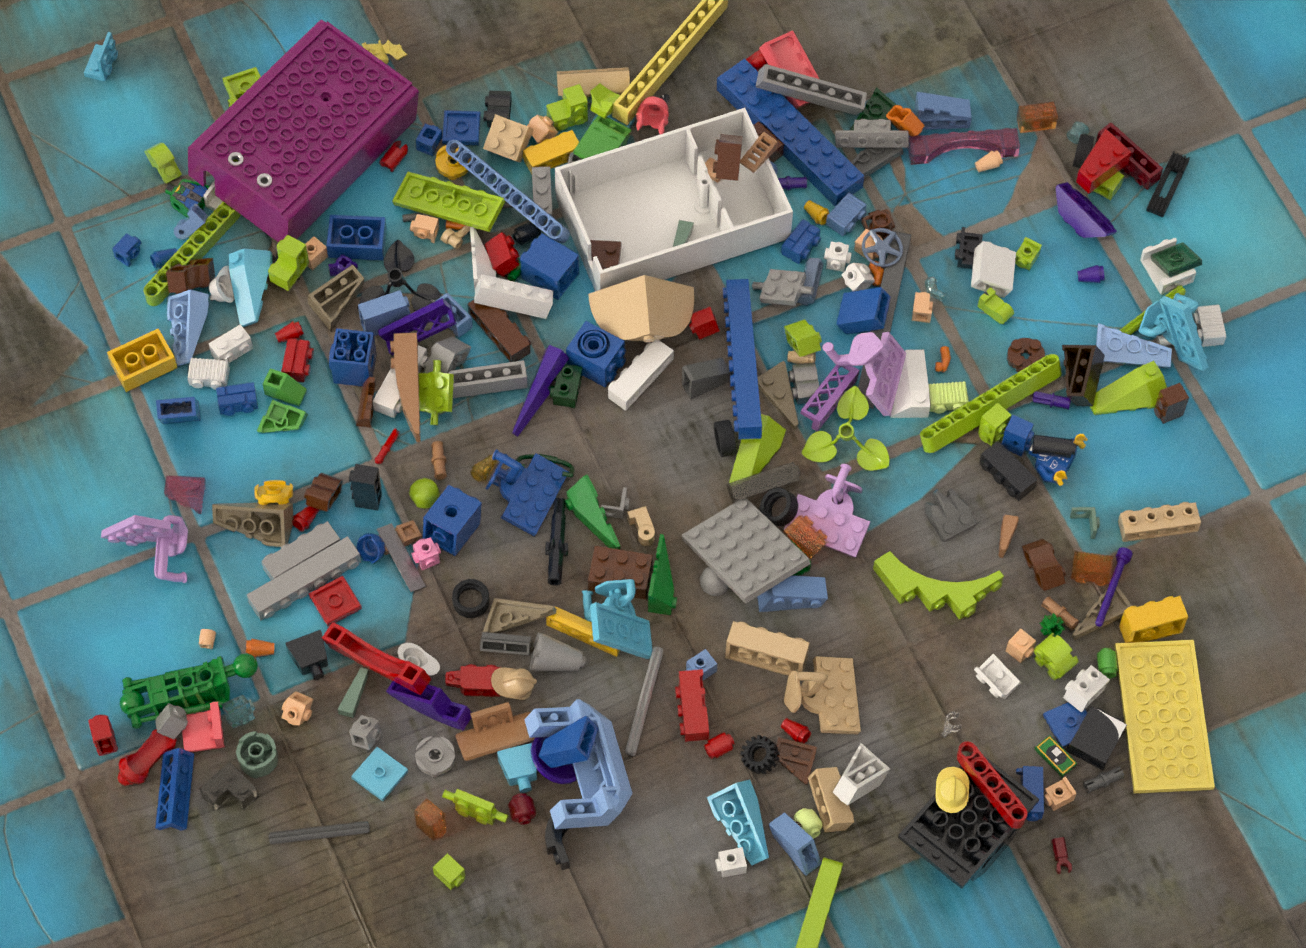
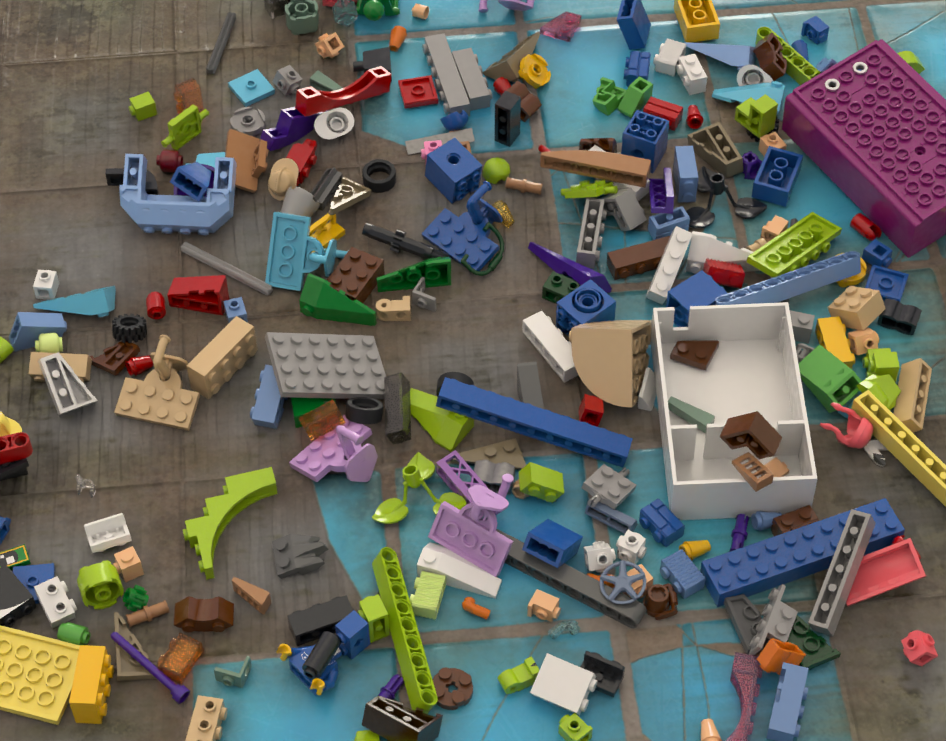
camera: 110 degrees right, 10 degrees down
(849, 34) = (919, 647): none -> coral brick

